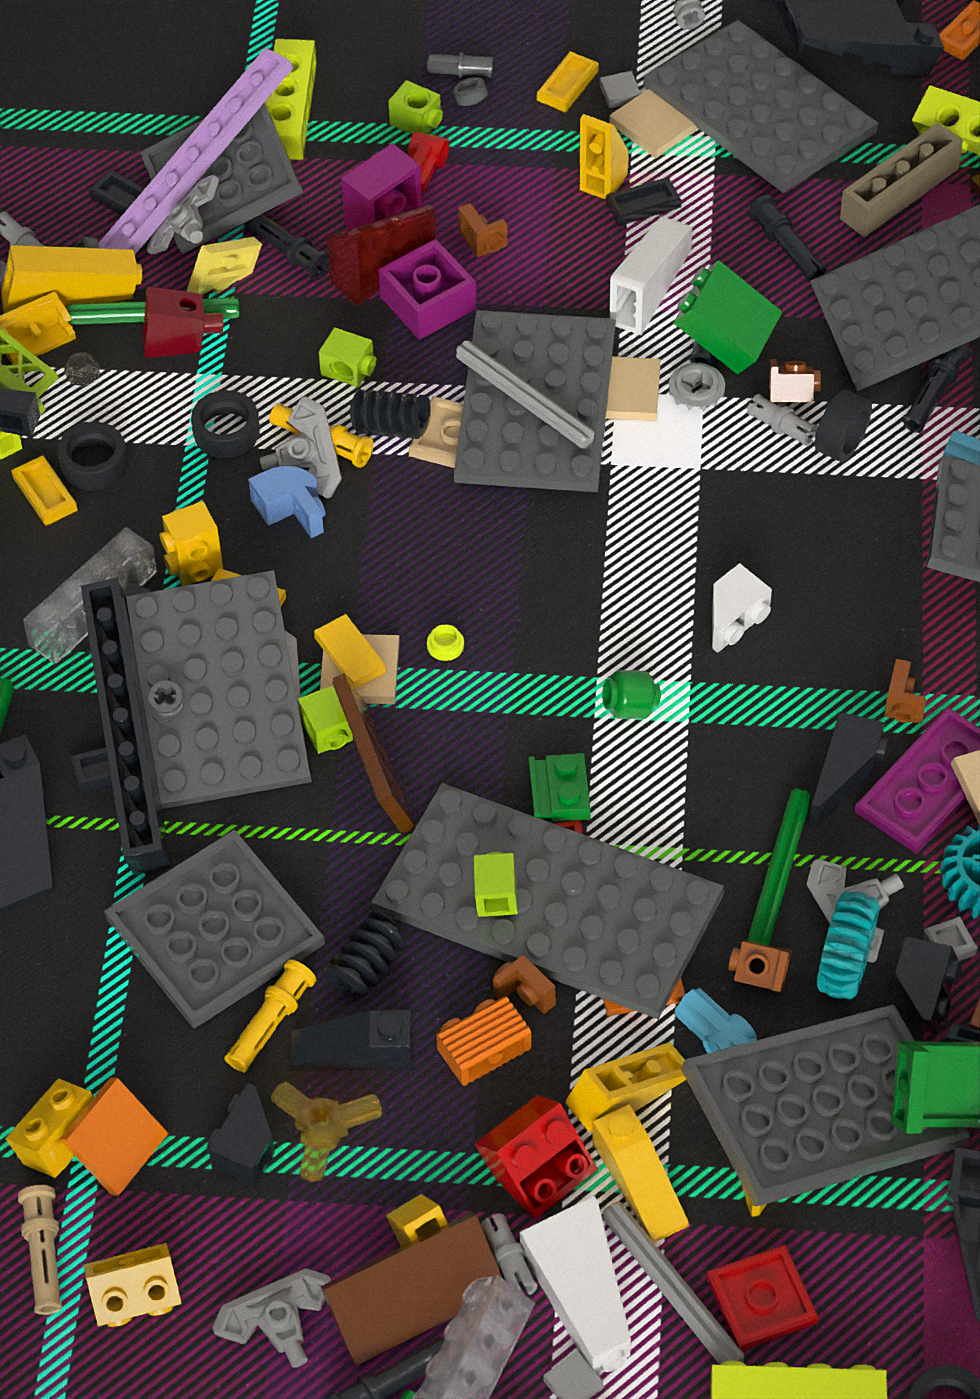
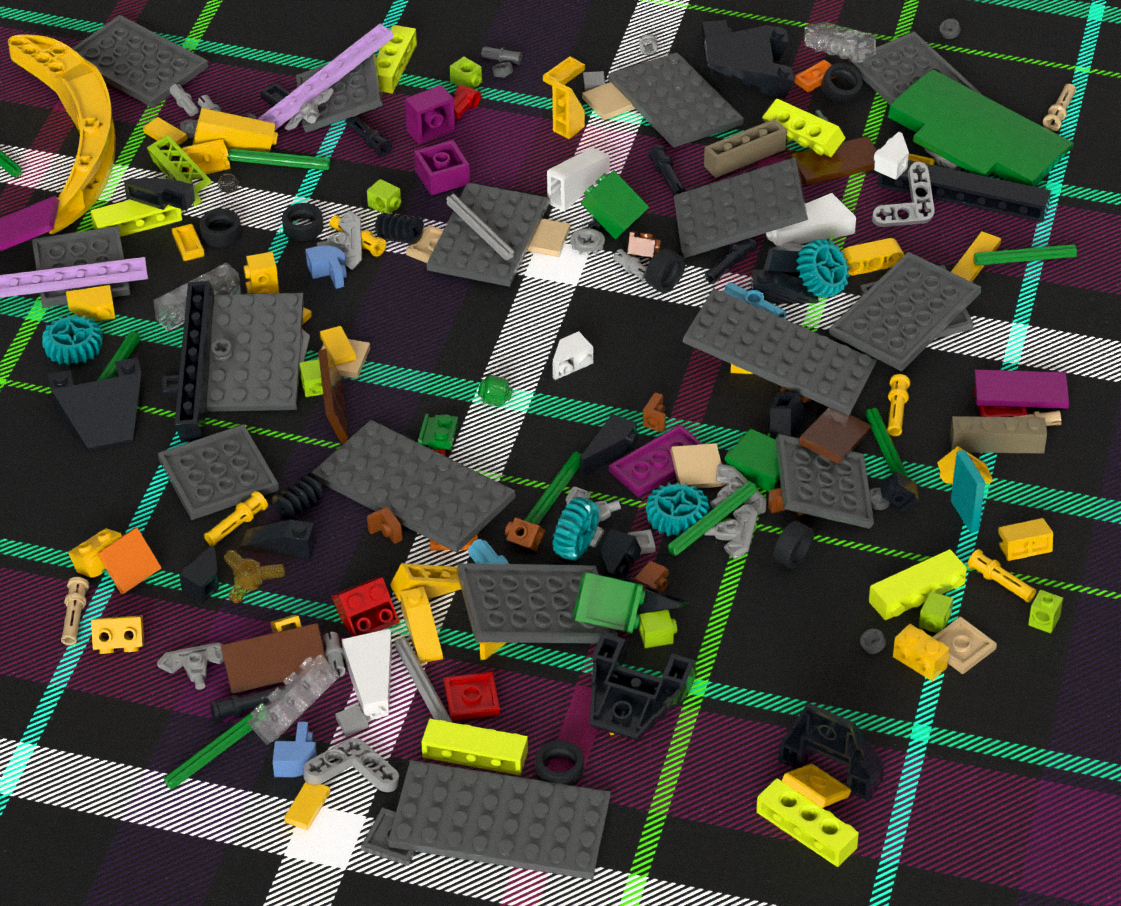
camera: 10 degrees right, 10 degrees down
(176, 322) = (288, 164): dark red torso -> none
(223, 264) = (325, 139): light yellow wing -> none
(364, 249) = (411, 136): clear red wedge -> none
(445, 643) = (395, 350): neon yellow plate -> none
(480, 235) = (484, 145): dark orange bracket -> none
(483, 1039) = (353, 548): orange brick -> none
(495, 884) = (381, 468): lime brick -> none
(643, 201) = (583, 141): black tile -> none

